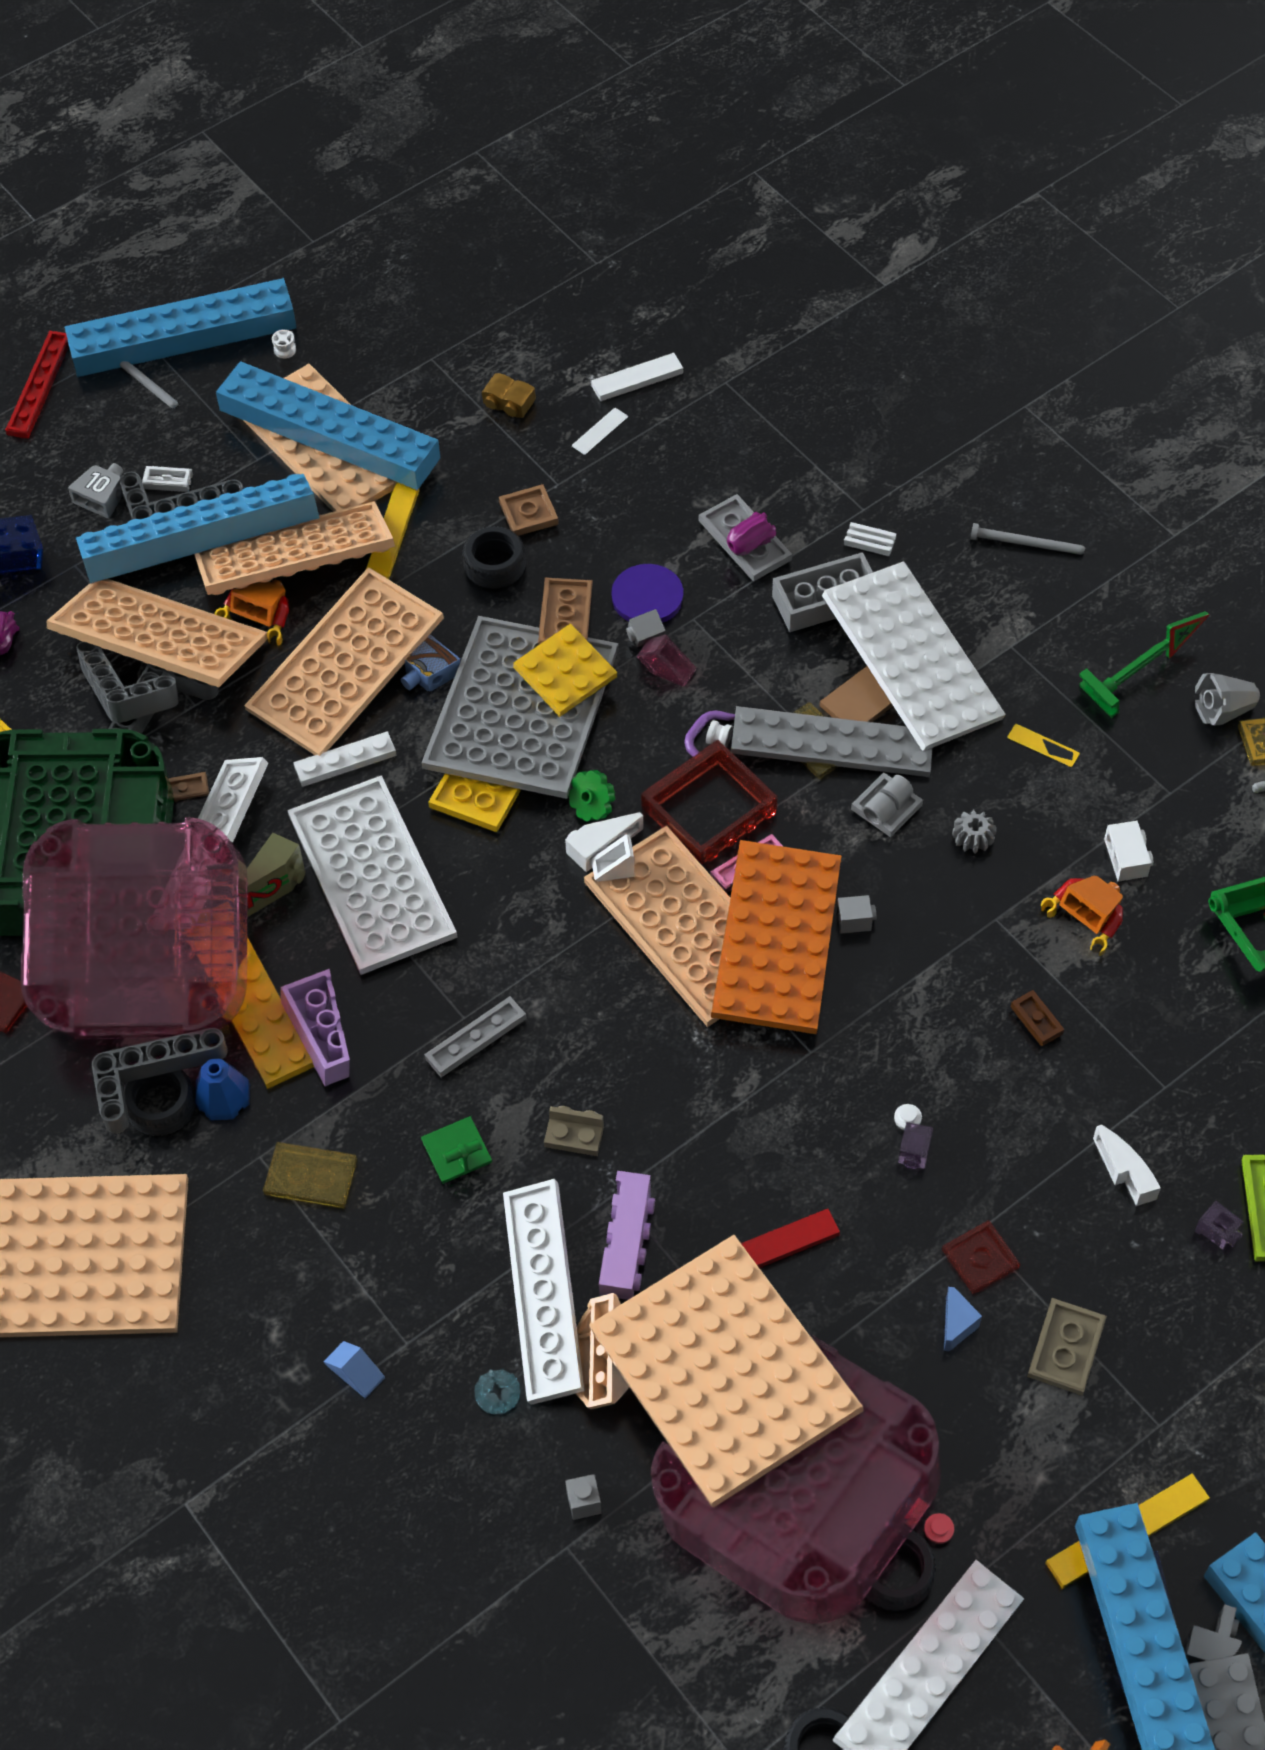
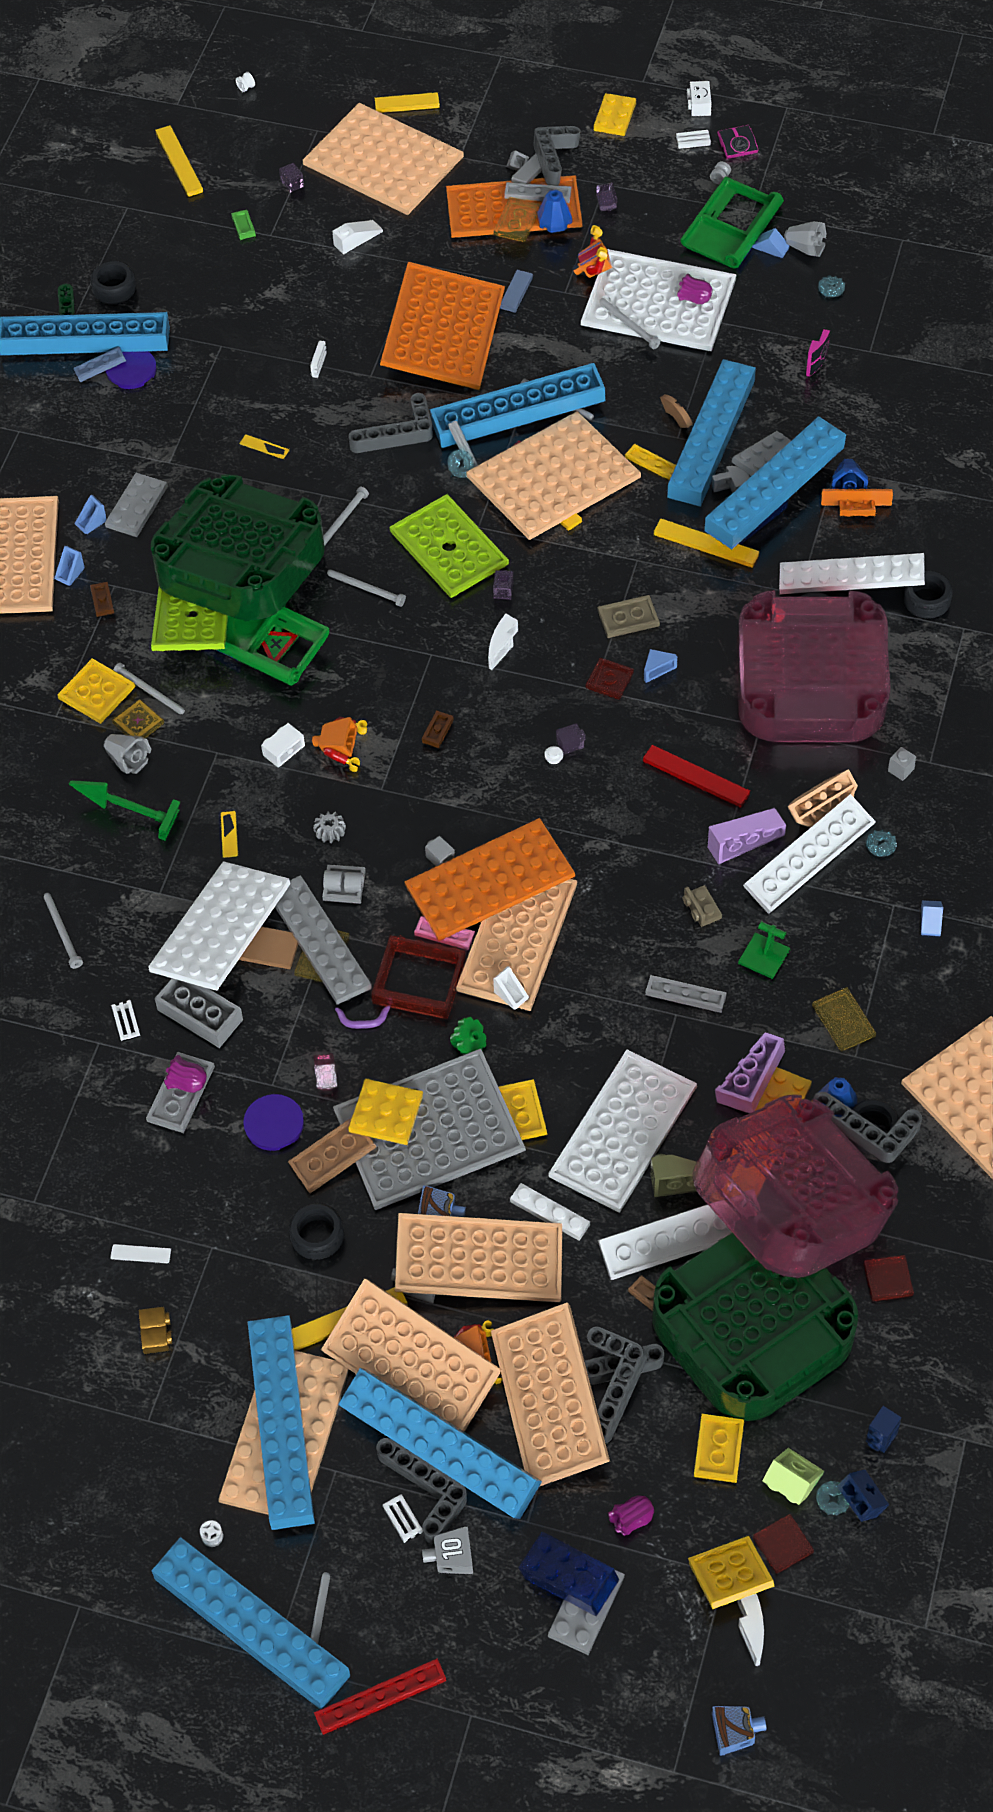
camera: 125 degrees left, 0 degrees up
(528, 510) = (254, 1243): medium nougat plate -> none
(597, 836) = (497, 1018): white slope -> none
(637, 376) = (71, 1260): white tile -> none
(645, 627) = (308, 1096): light grey brick -> none
(719, 732) = (361, 1003): white wheel -> none
(725, 1370) = (792, 717): light nougat plate -> none

